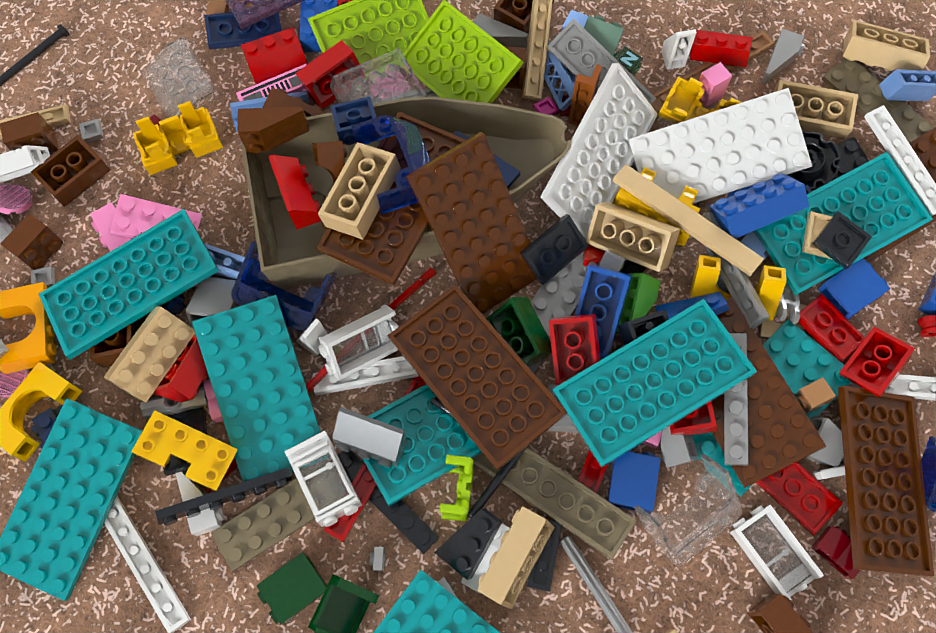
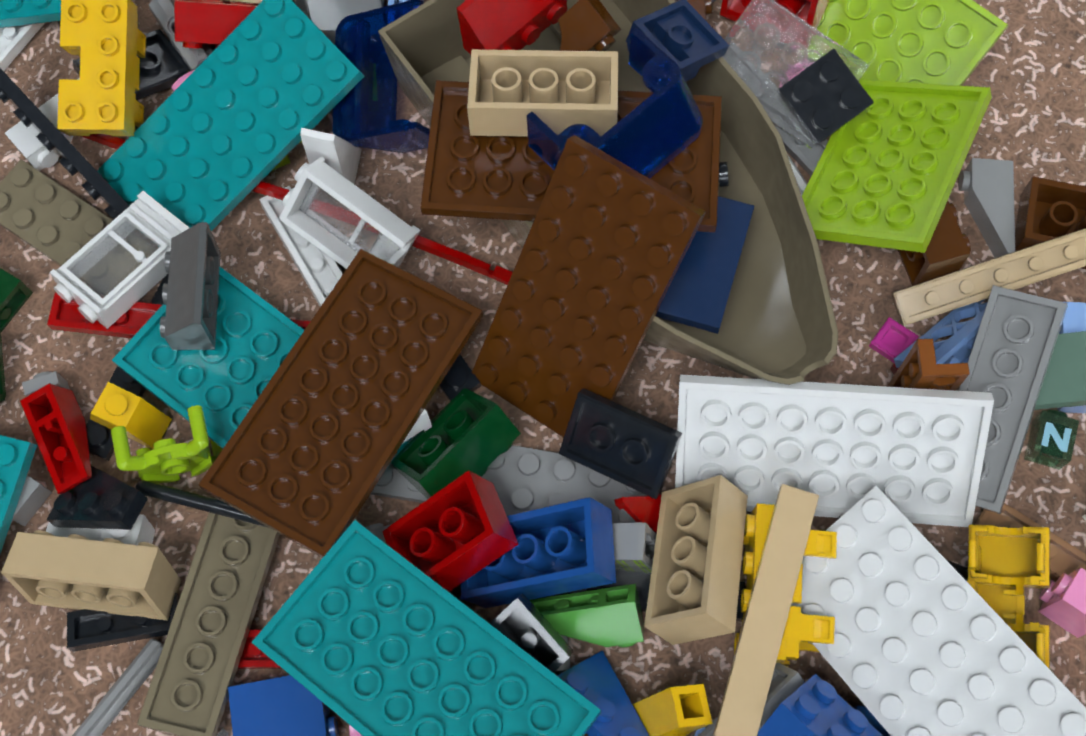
camera: 70 degrees right, 0 degrees up
(406, 75) = (825, 96): none -> black plate
(420, 512) = (122, 408): none -> yellow slope
(420, 555) = (59, 435): none -> red slope

